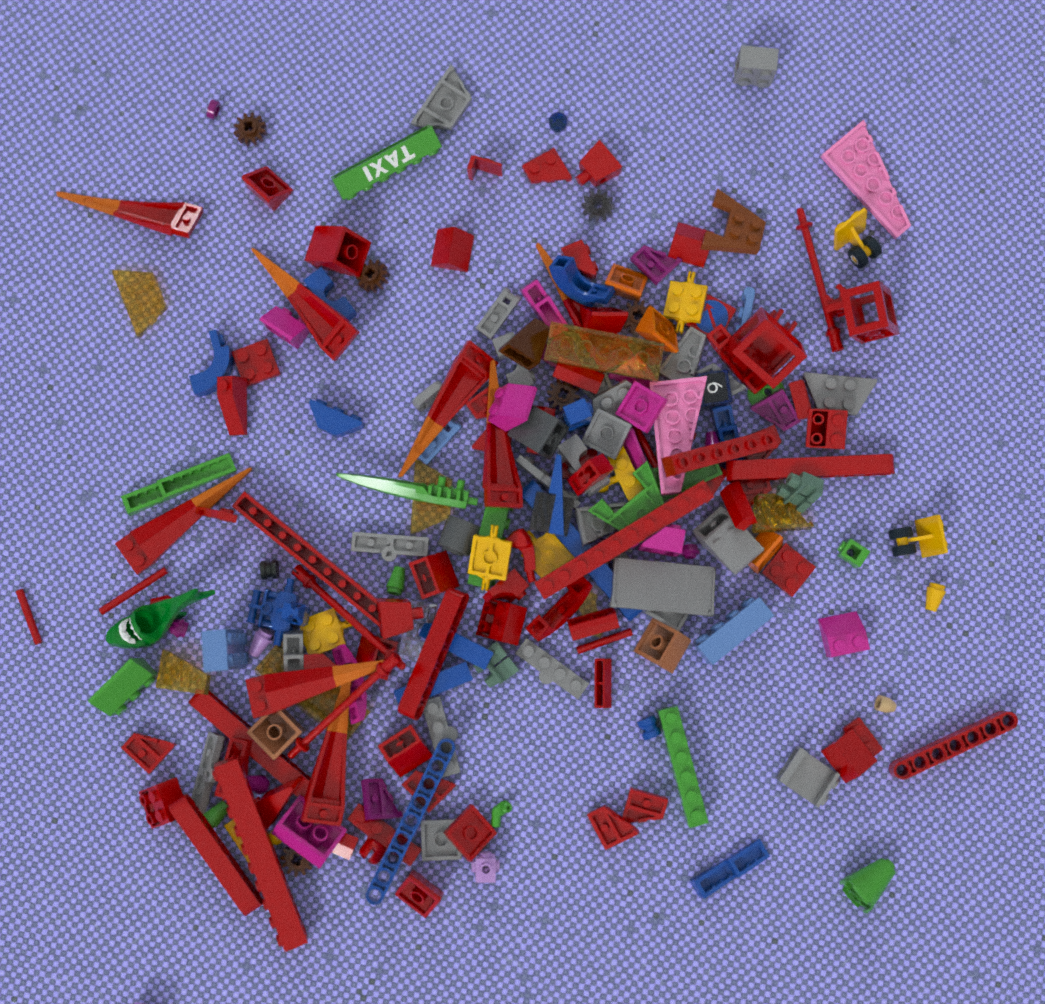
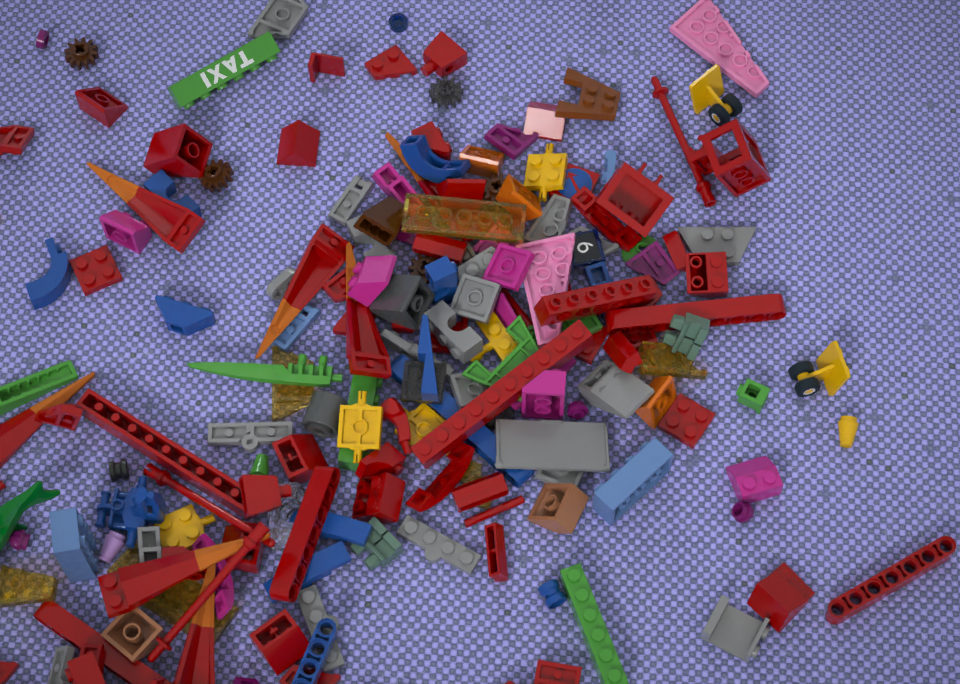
camera: 10 degrees left, 20 degrees down
(233, 403) = (73, 307): red slope -> none
(590, 474) = (461, 330): red arch -> none
(828, 666) = (742, 512): none -> magenta plate
(884, 704) = (810, 546): tan hose -> none

